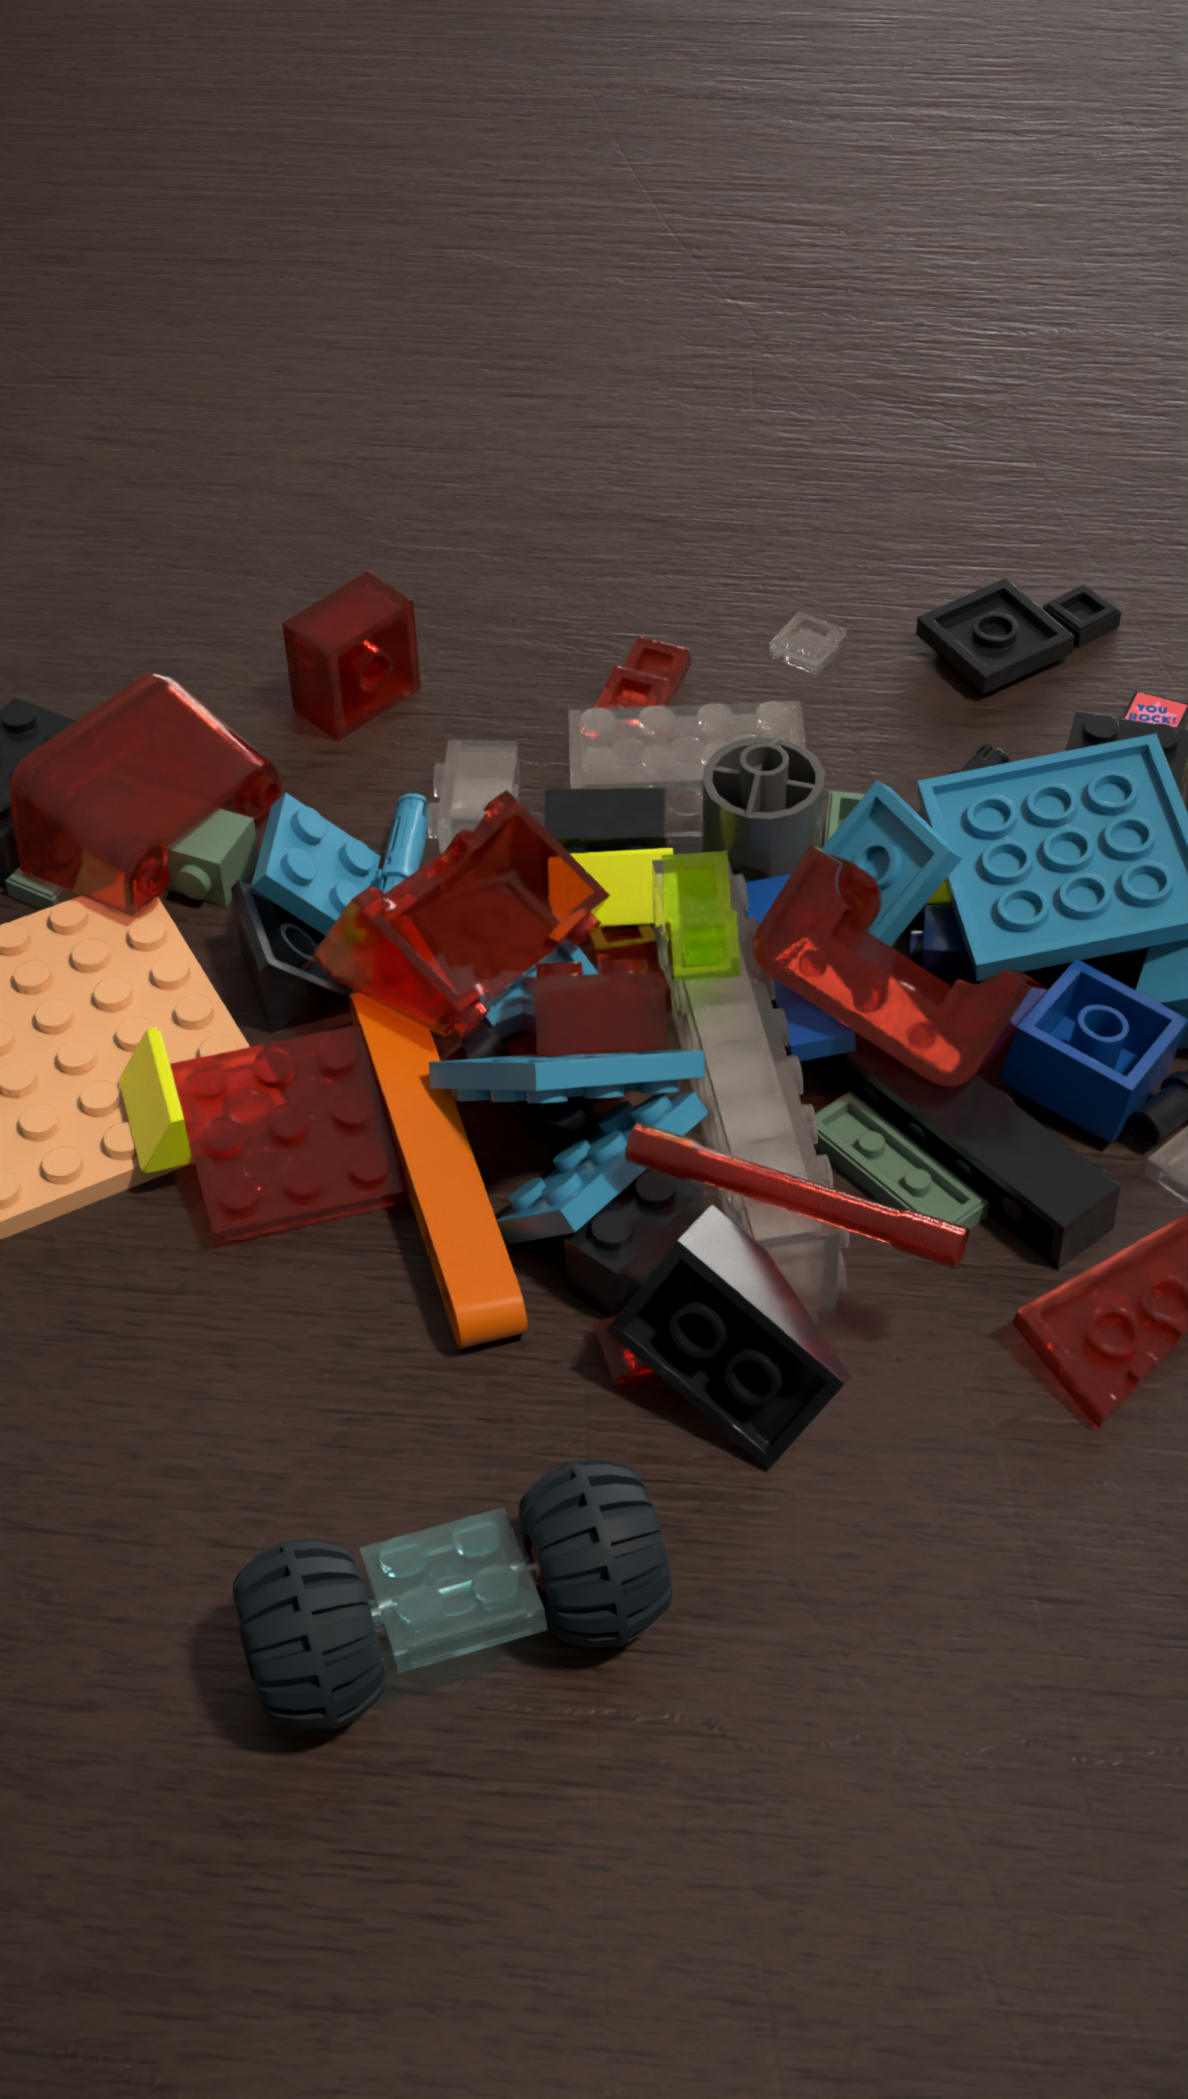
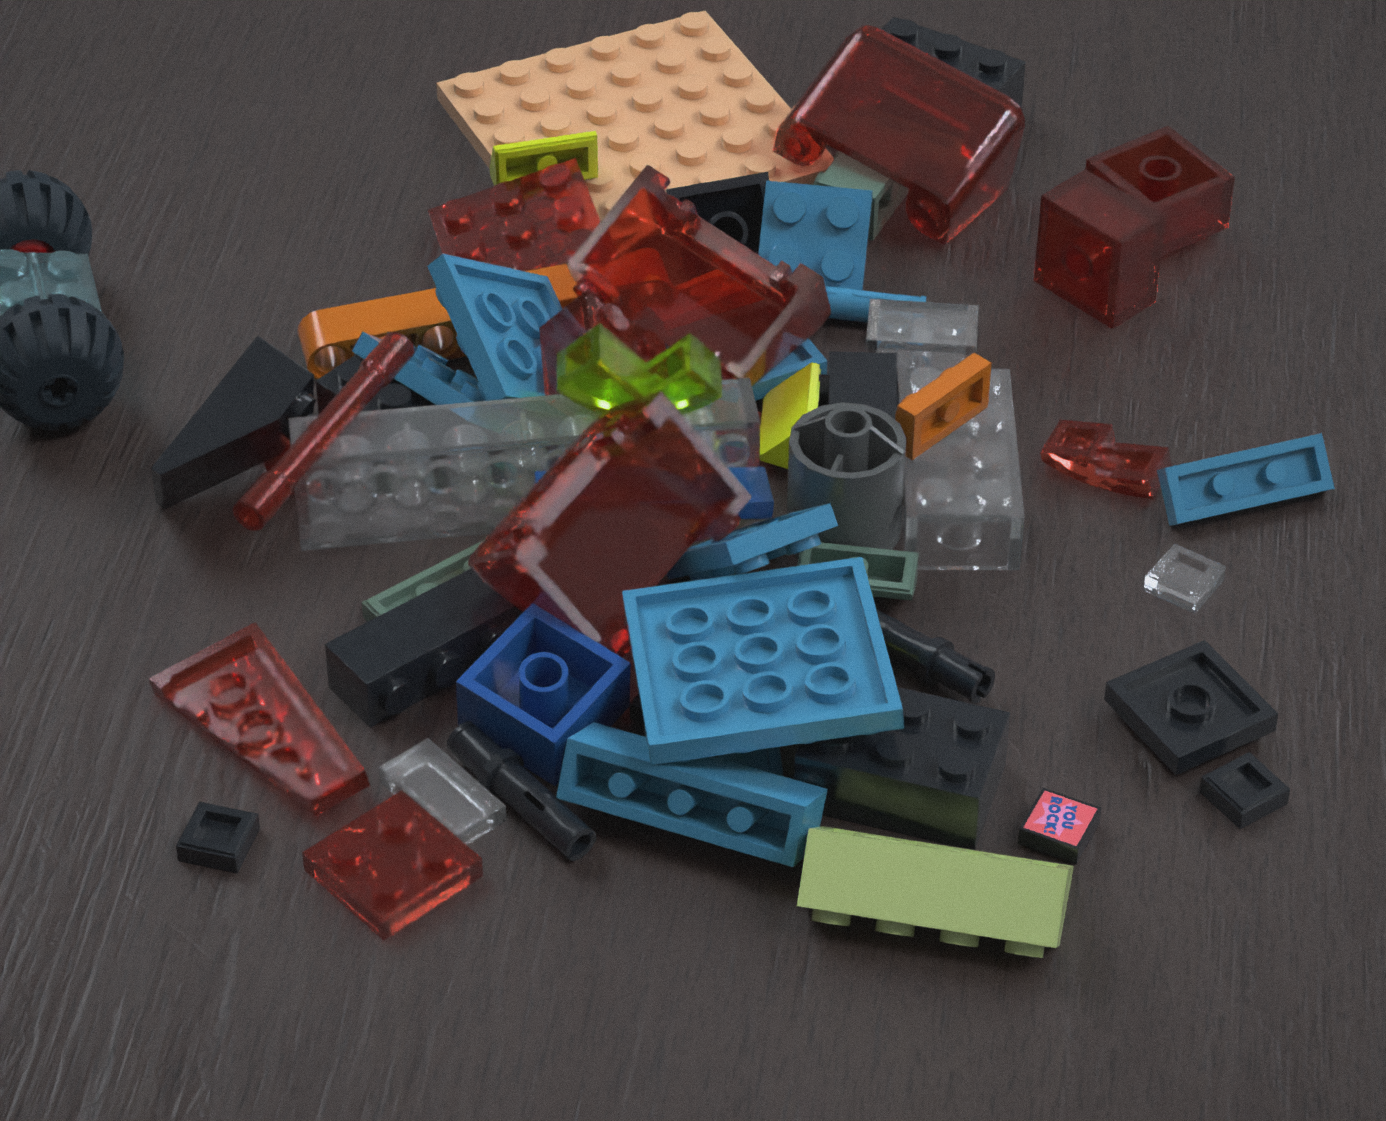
camera: 90 degrees right, 5 degrees down
(234, 619) = (1173, 180): none -> clear red brick
(677, 720) = (944, 404): none -> orange plate
(681, 592) = (1245, 479): none -> dark azure plate

